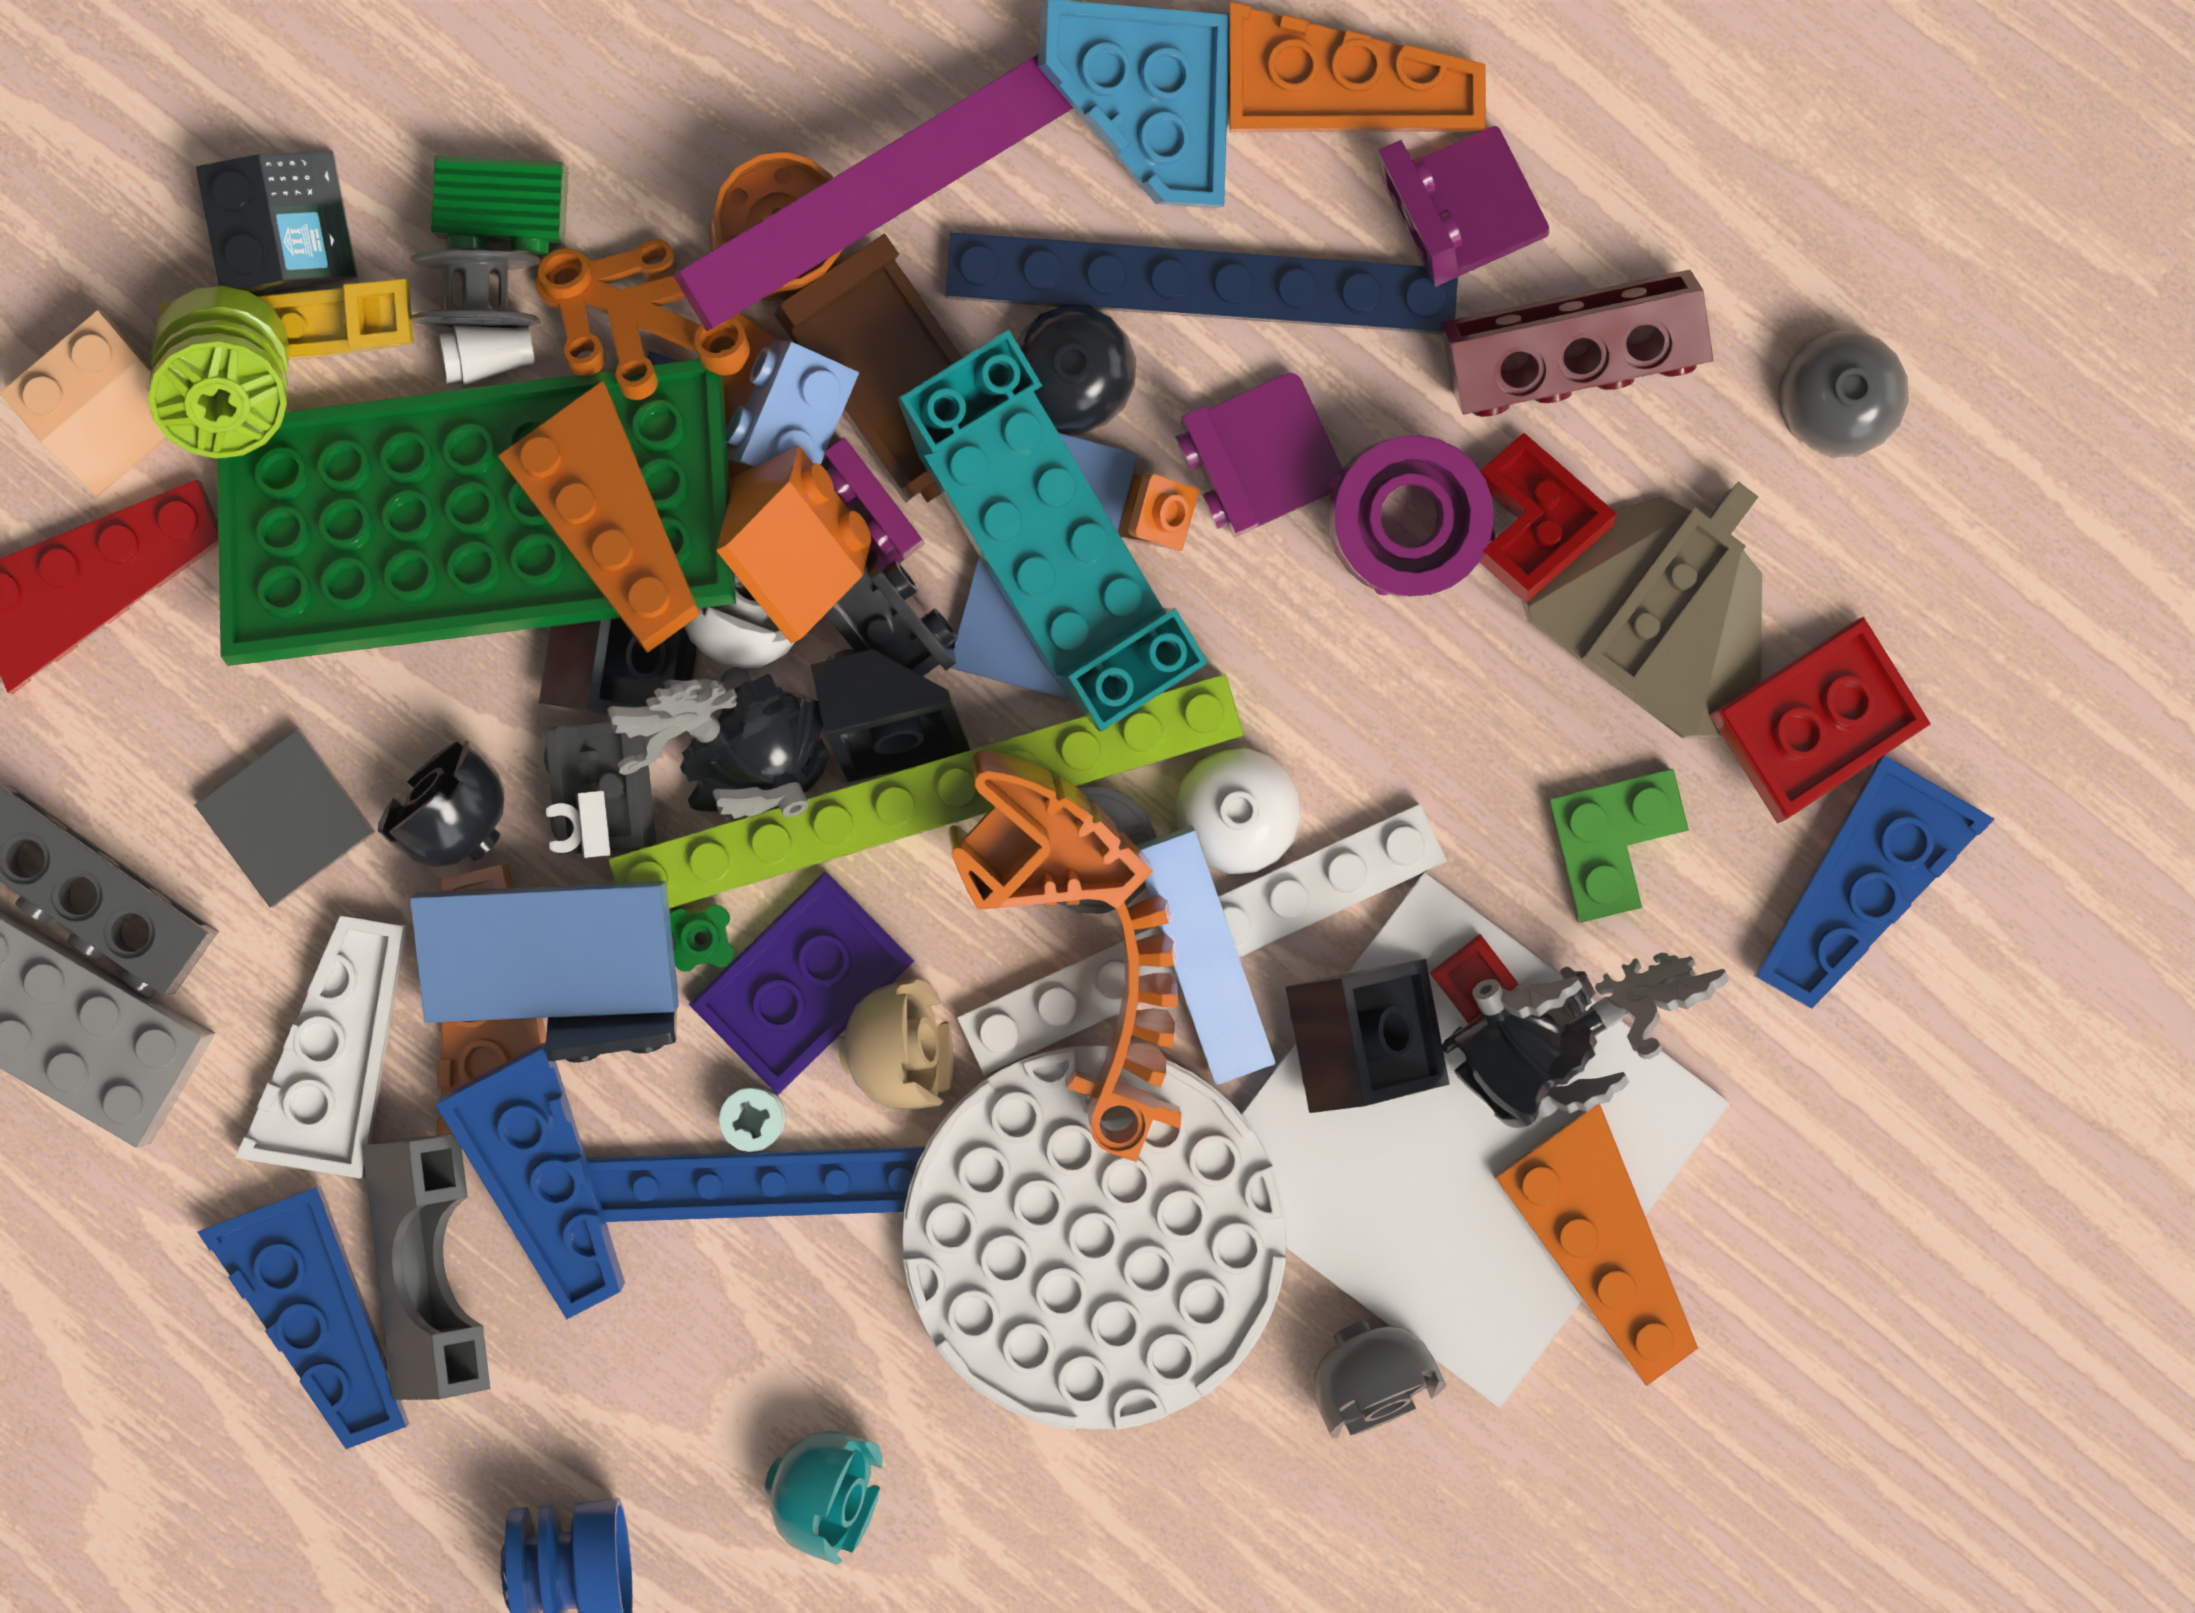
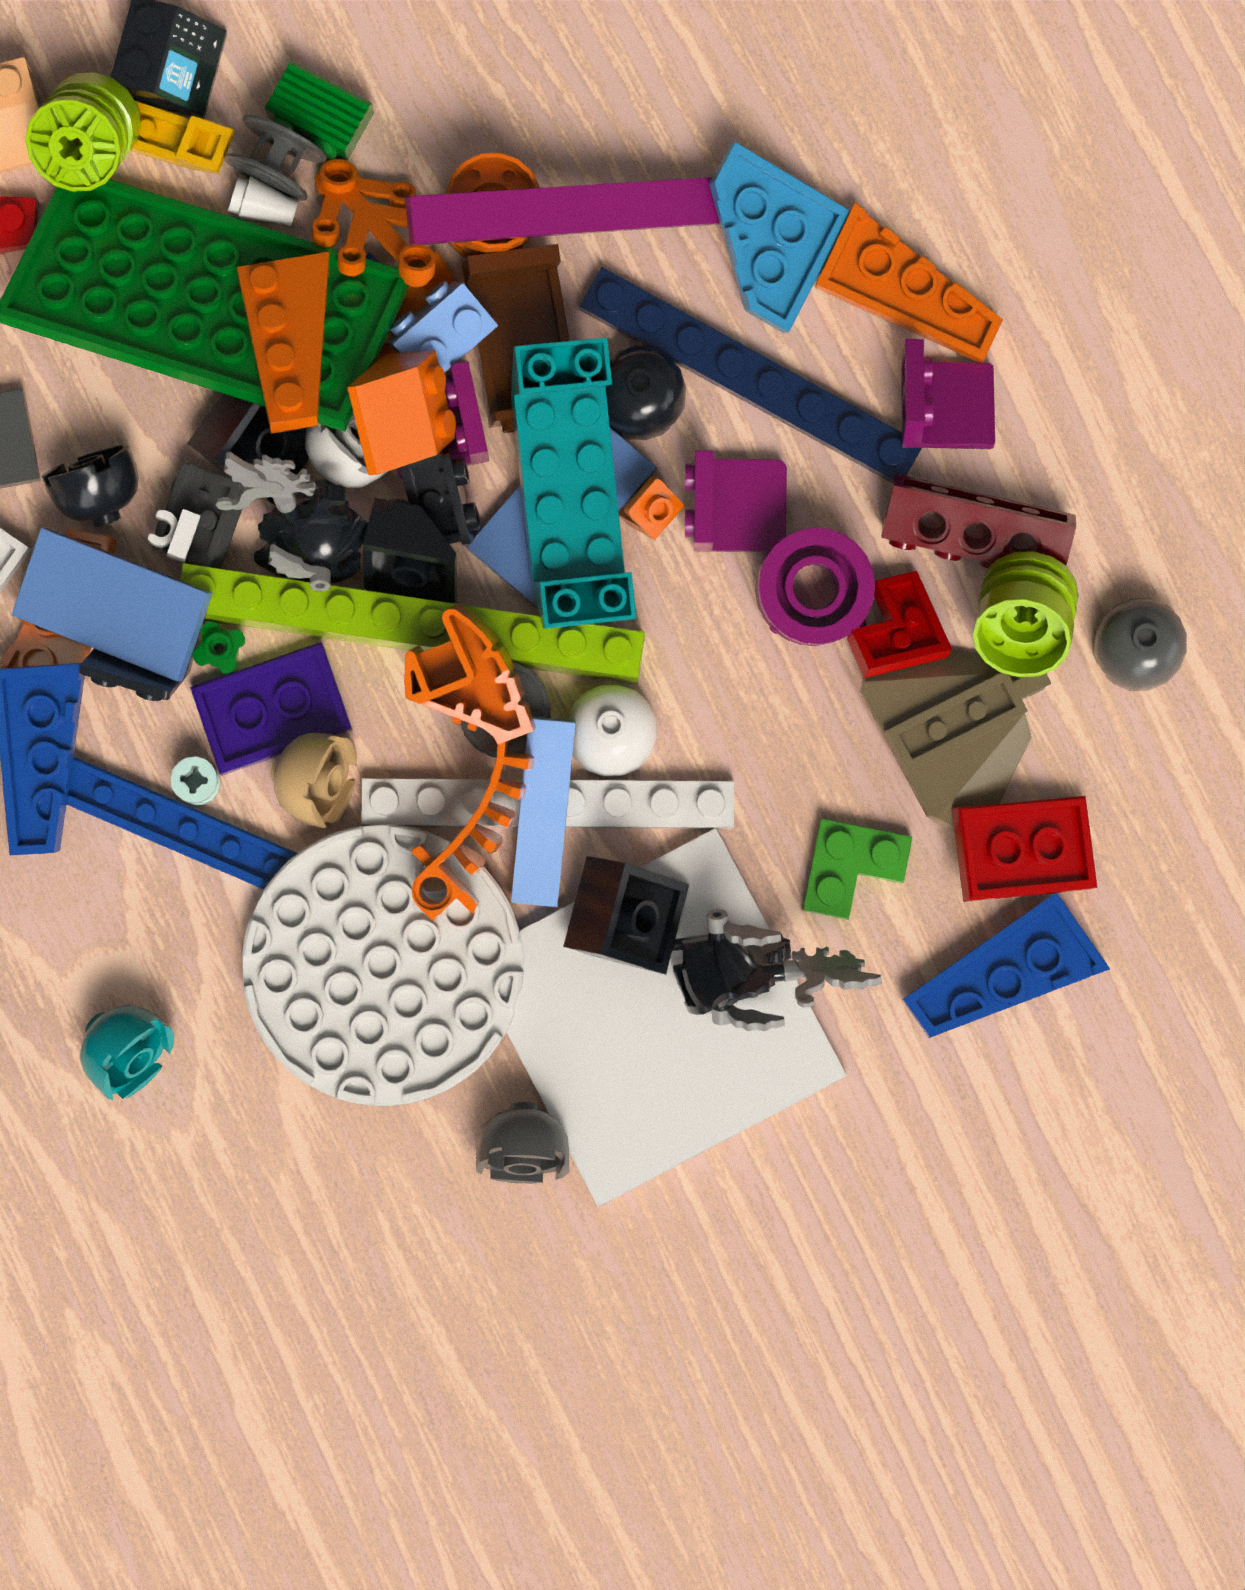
camera: 25 degrees right, 5 degrees down
(1465, 970) = (711, 899): red tile -> none
(1594, 1228) = (717, 1118): orange wing -> none
(1690, 428) = (1026, 614): none -> lime wheel

